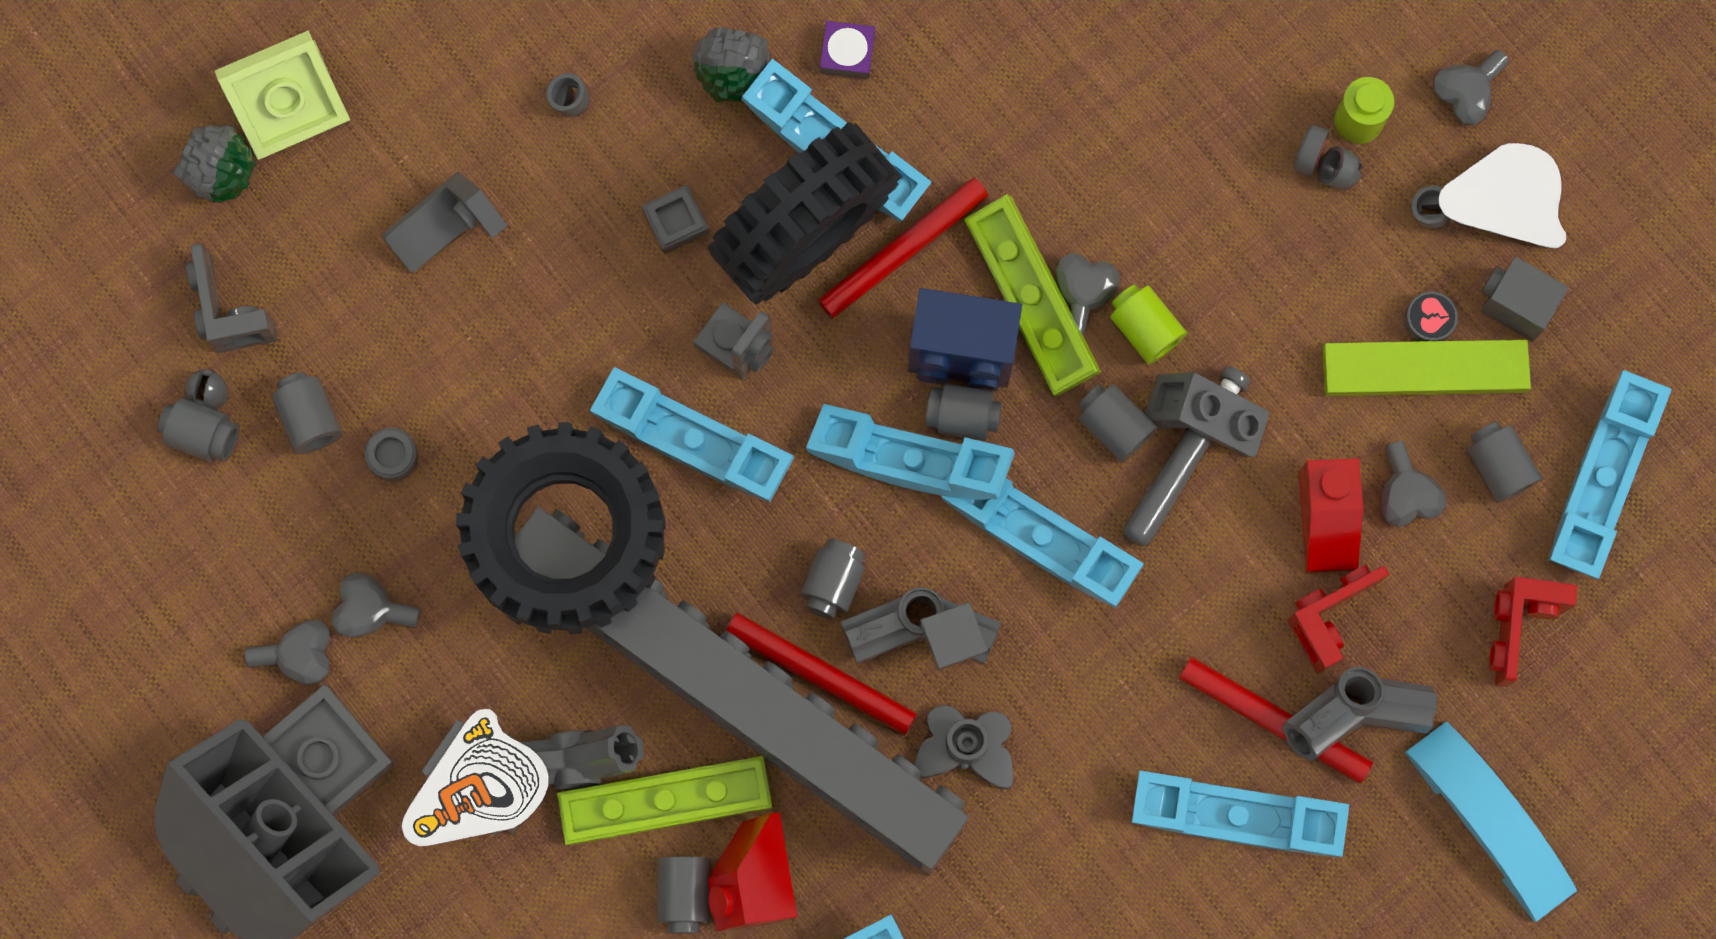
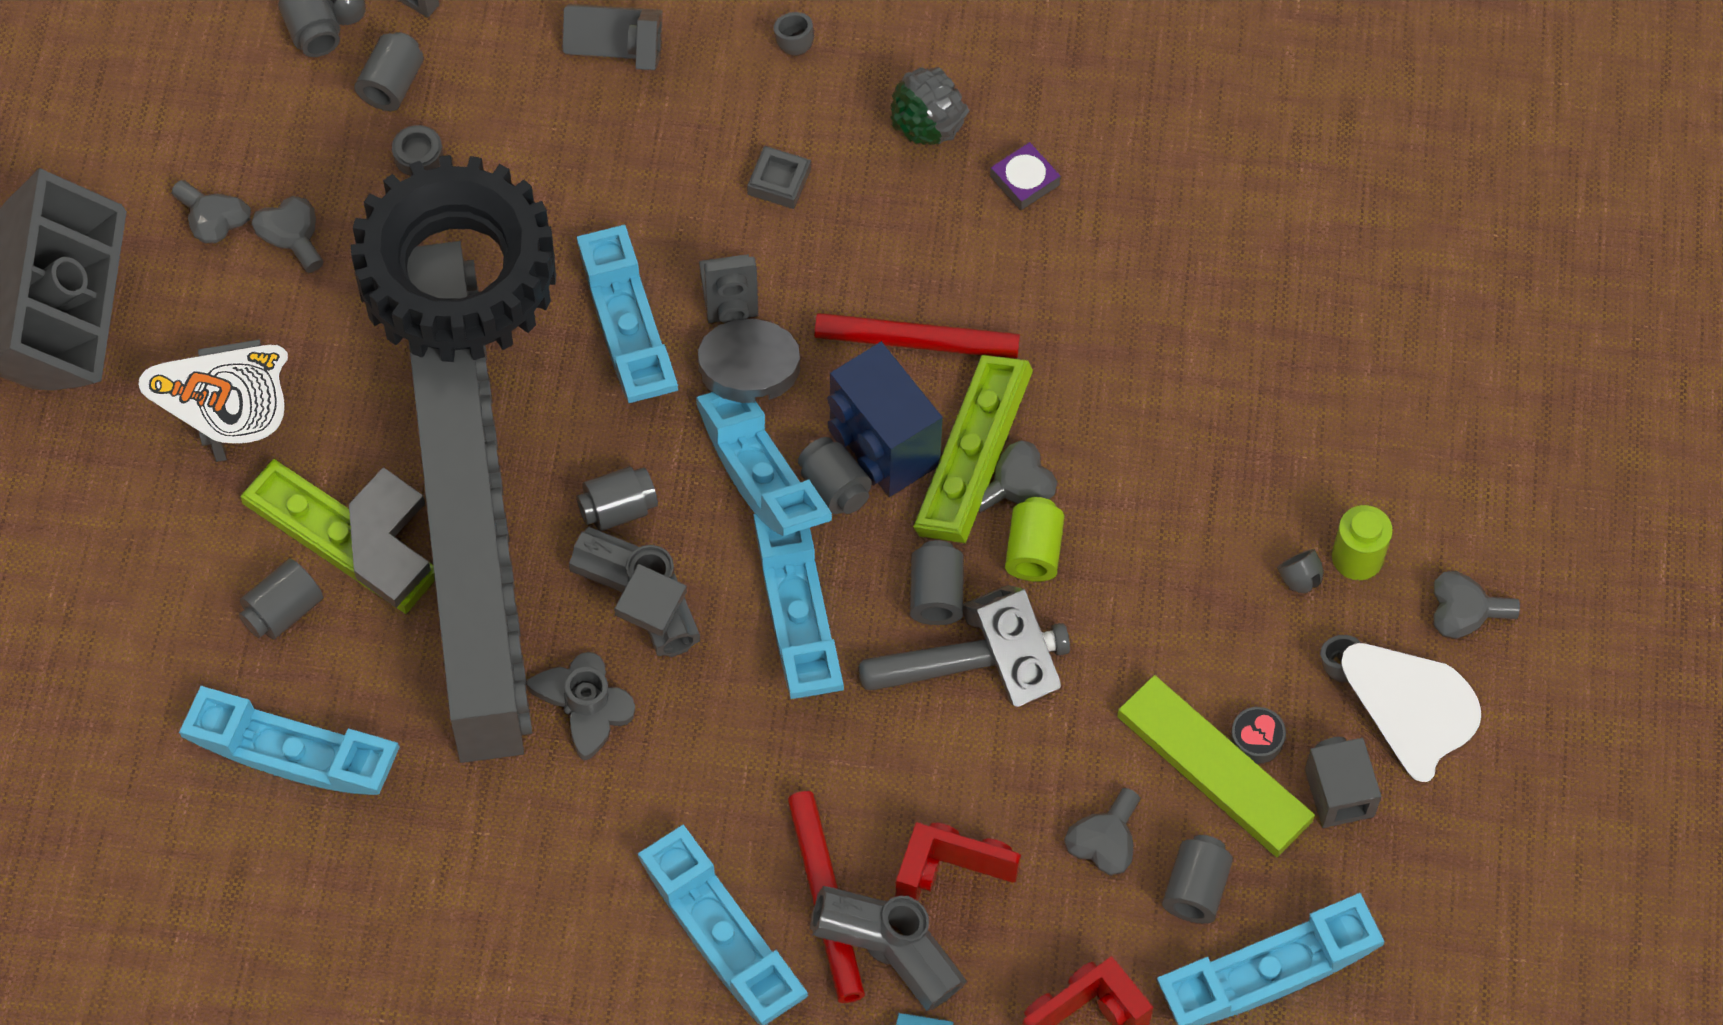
camera: 45 degrees right, 15 degrees down
(328, 749) = (158, 289): dark grey plate -> none
(586, 756) = (313, 445): dark grey piece -> none
(720, 792) = (375, 520): none -> flat silver tile
(752, 877) = (330, 635): red slope -> none
(799, 119) = (943, 219): medium azure slope -> none
(804, 212) = (856, 224): black tyre -> none
(812, 384) = (748, 360): none -> flat silver tile
(822, 674) = (539, 556): red piece -> none
(1311, 150) = (1292, 536): dark grey tile -> none
(1331, 514) = (1026, 789): red slope -> none

